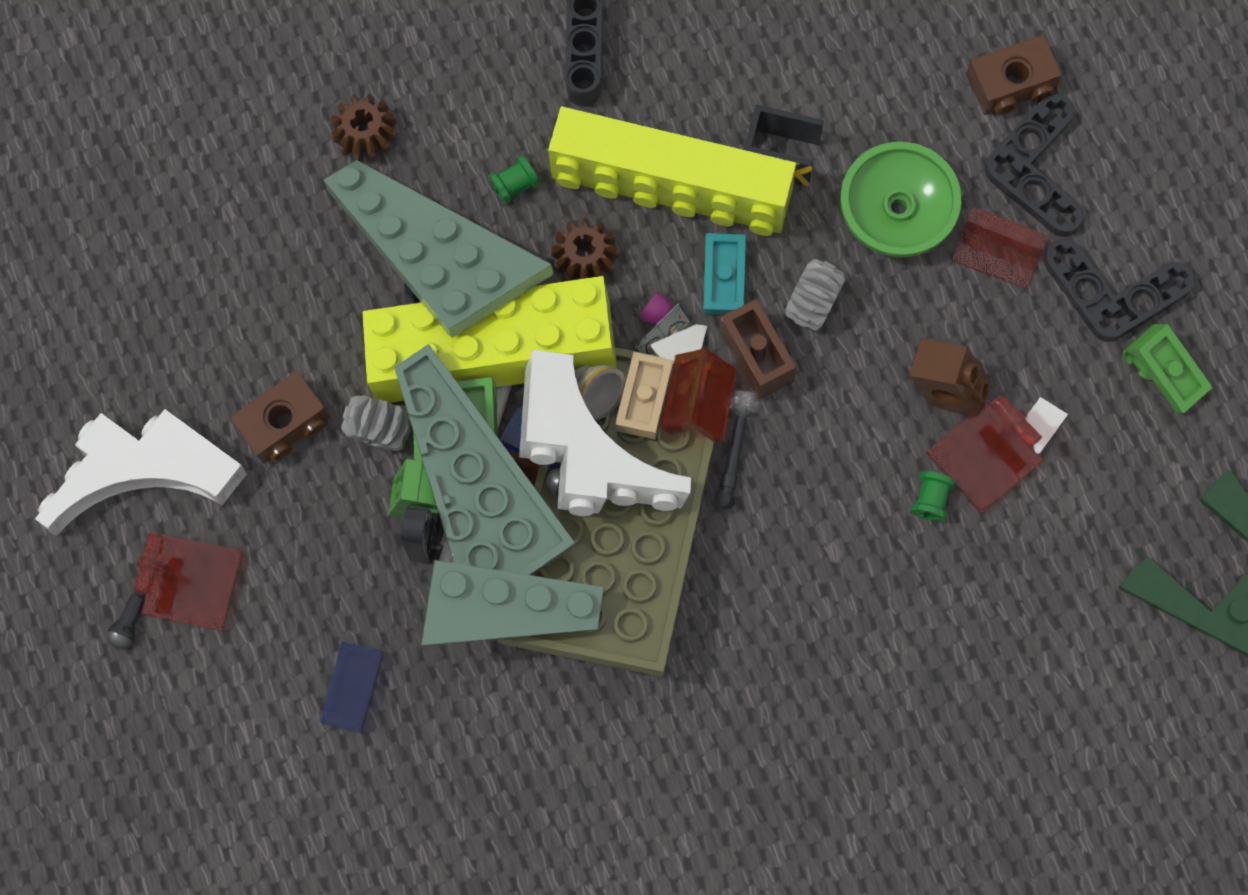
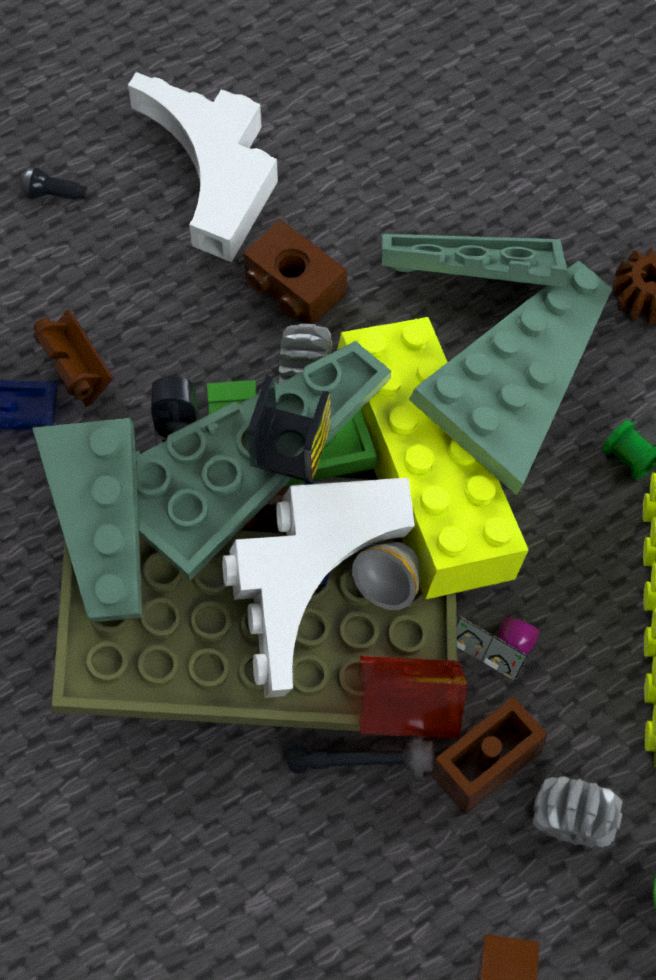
camera: 75 degrees right, 10 degrees down
(187, 580) = (99, 229): clear red plate -> none
(305, 252) = (484, 257): none -> sand green wing
(318, 620) = (75, 355): none -> reddish brown hinge
(484, 412) = (271, 423): none -> black piece
(567, 250) = (582, 551): reddish brown gear -> none
(644, 395) = (396, 630): tan plate -> none
(681, 342) = (479, 671): white sticker -> none
(724, 273) = (582, 704): teal plate -> none

